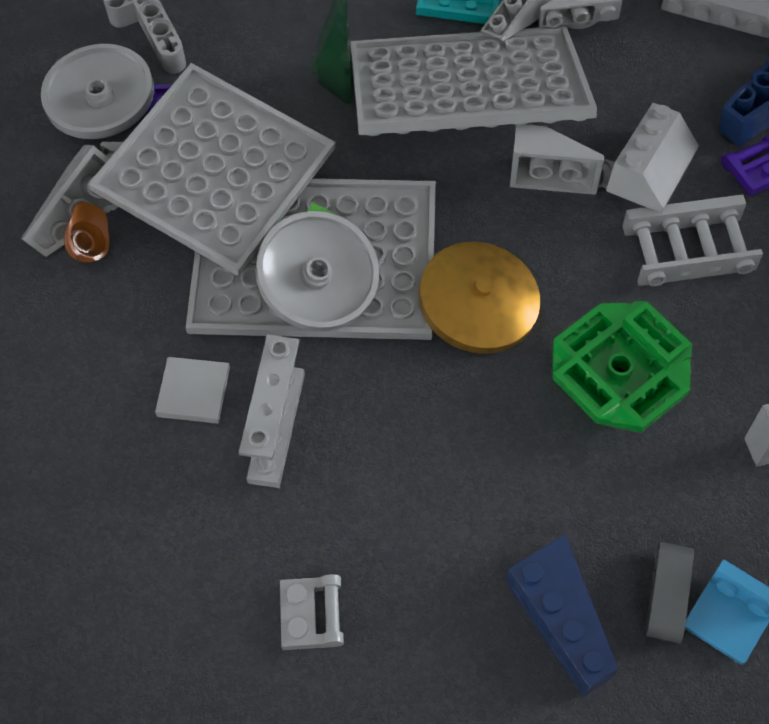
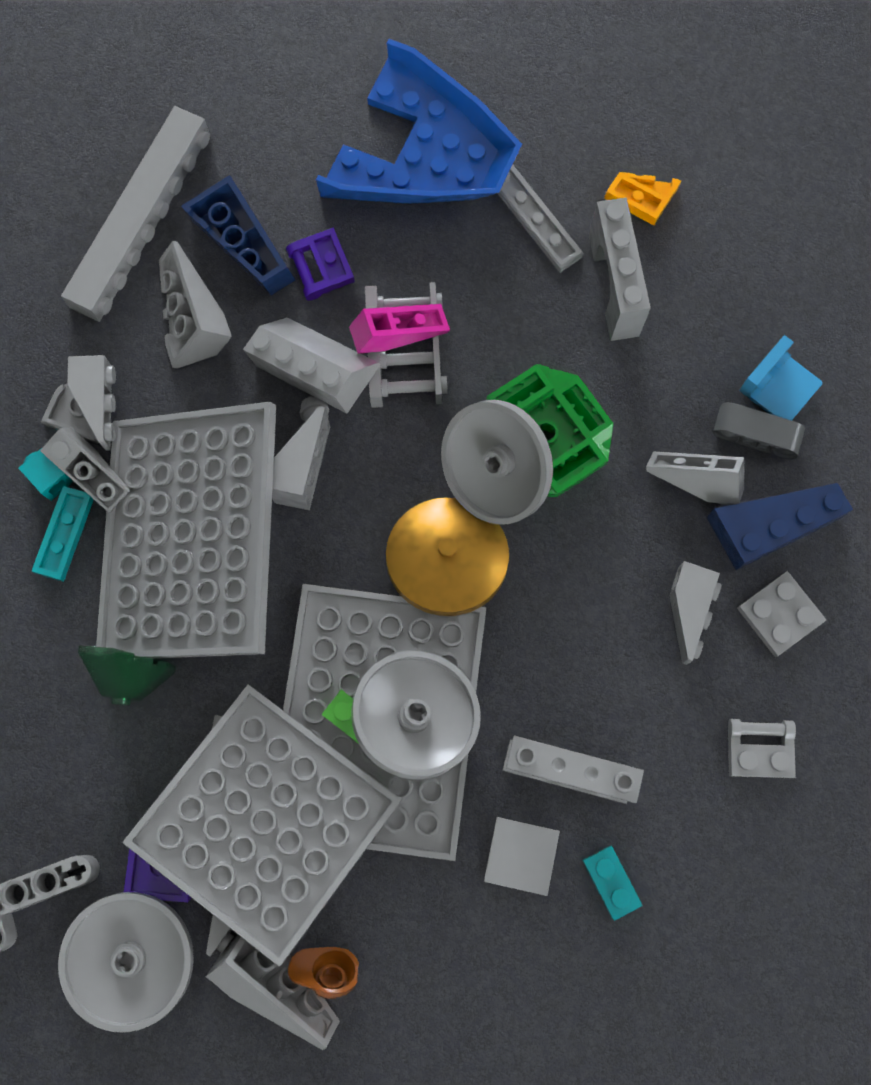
camera: 85 degrees left, 15 degrees up
(169, 473) = (612, 883): none -> teal plate
(459, 527) = (690, 601): none -> light grey slope
(461, 629) = (781, 614): none -> light grey plate
(575, 309) = (497, 461): none -> light grey dish
(603, 531) = (705, 476): none -> light grey slope
(683, 70) = (194, 317): none -> light grey wedge
(704, 219) = (397, 326): none -> dark pink slope

